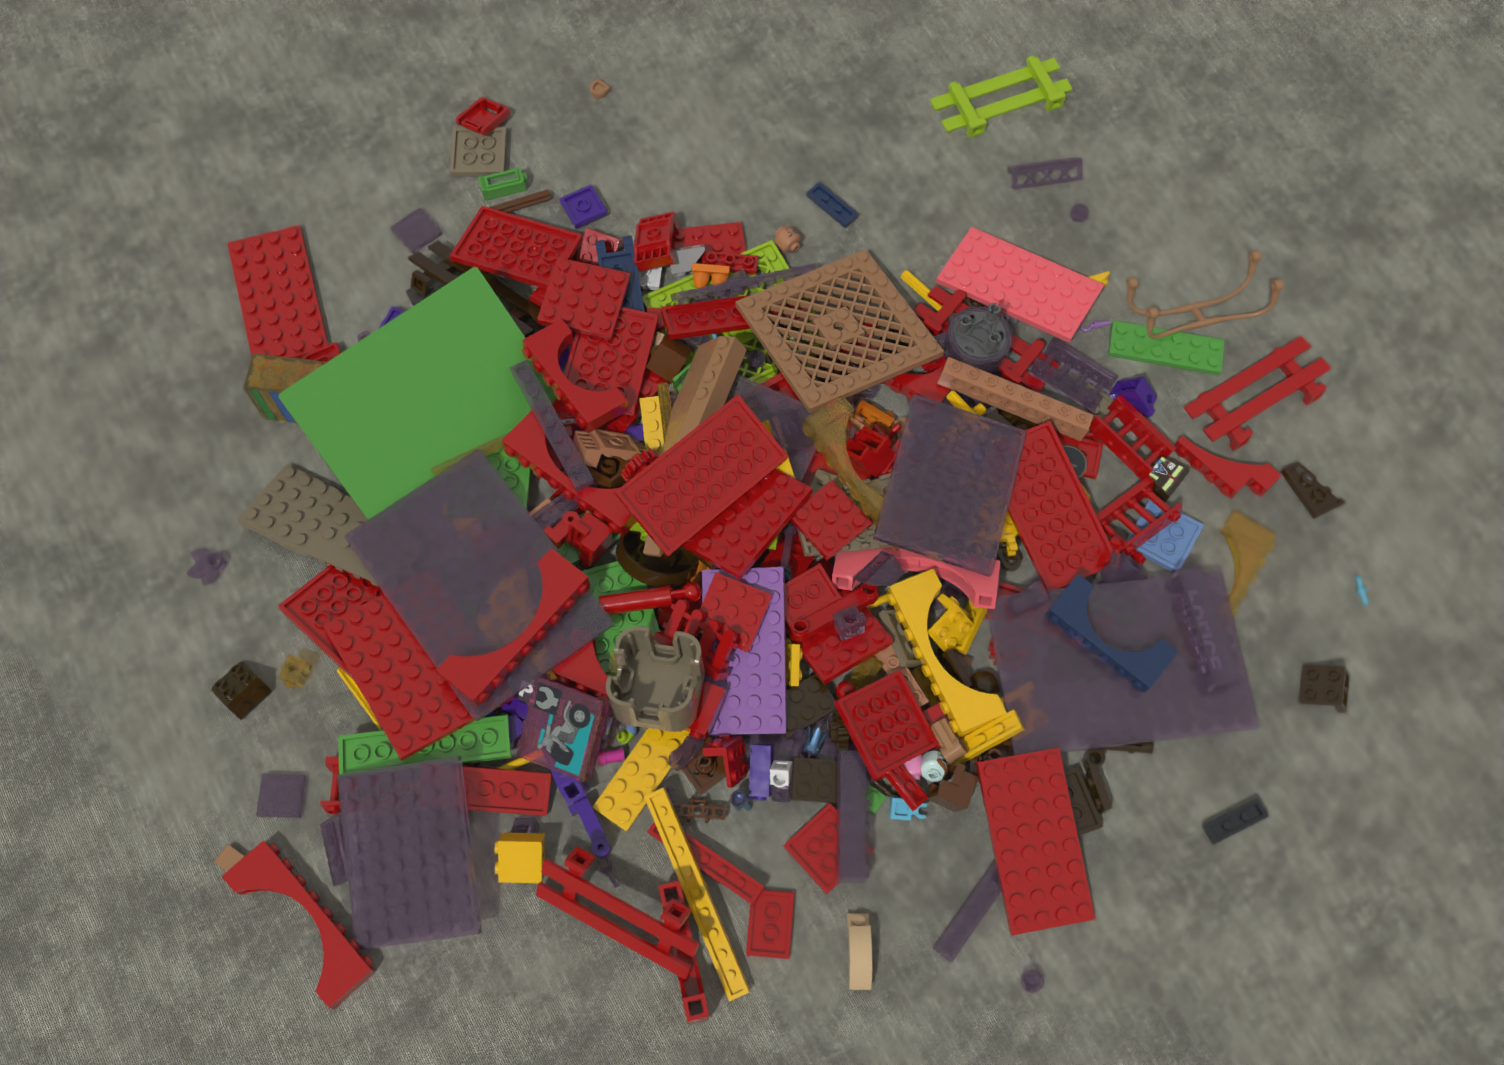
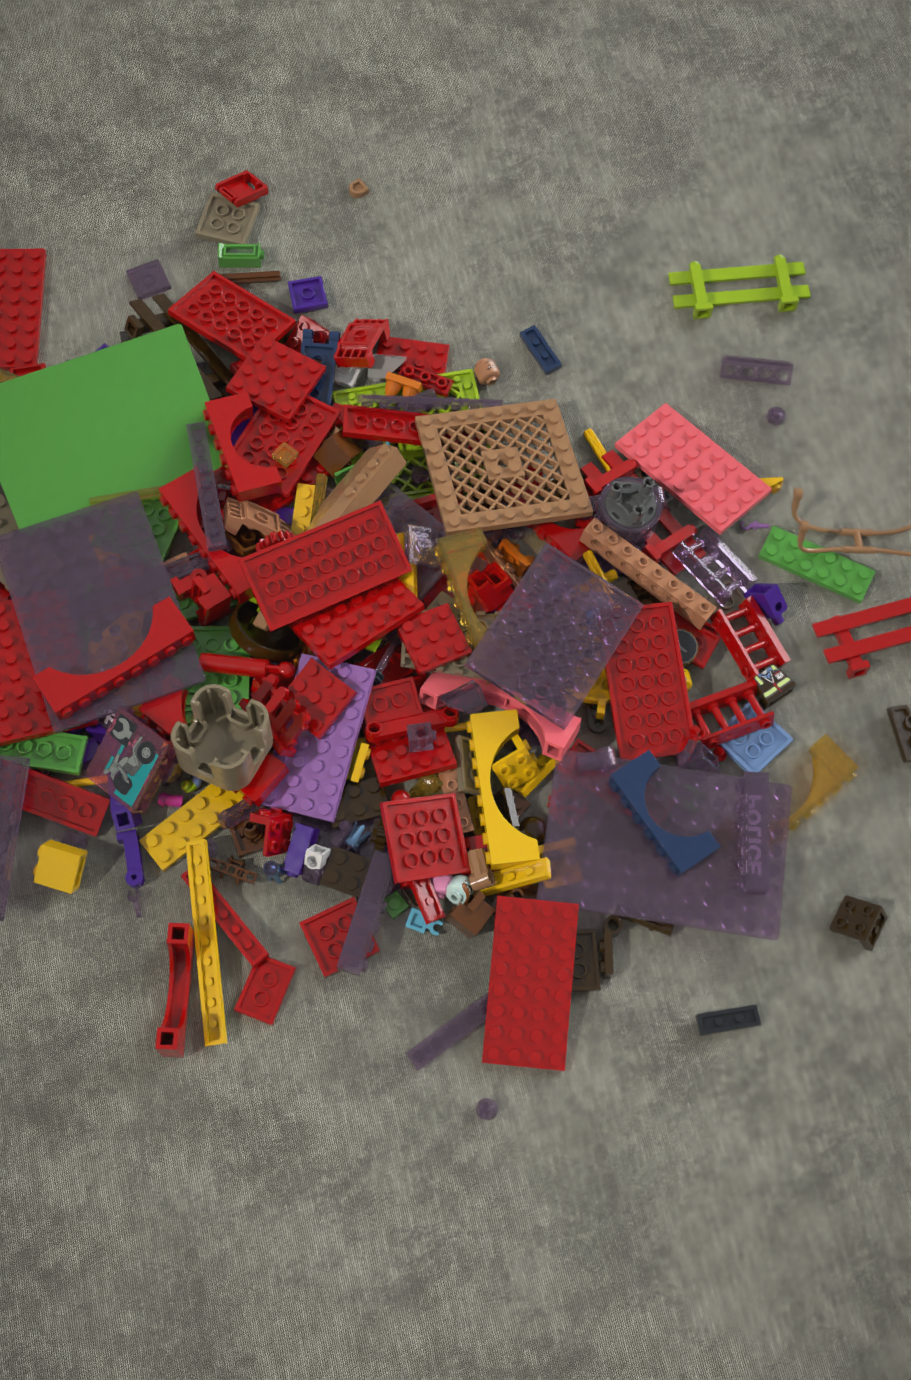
camera: 15 degrees right, 0 degrees up
(575, 885) = (89, 916): red fence -> none
(619, 372) = (285, 454): none -> clear yellow plate
(859, 951) = (335, 1036): tan arch -> none
(890, 434) = (516, 578): red piece -> none
(1226, 474) = (833, 699): red arch -> none

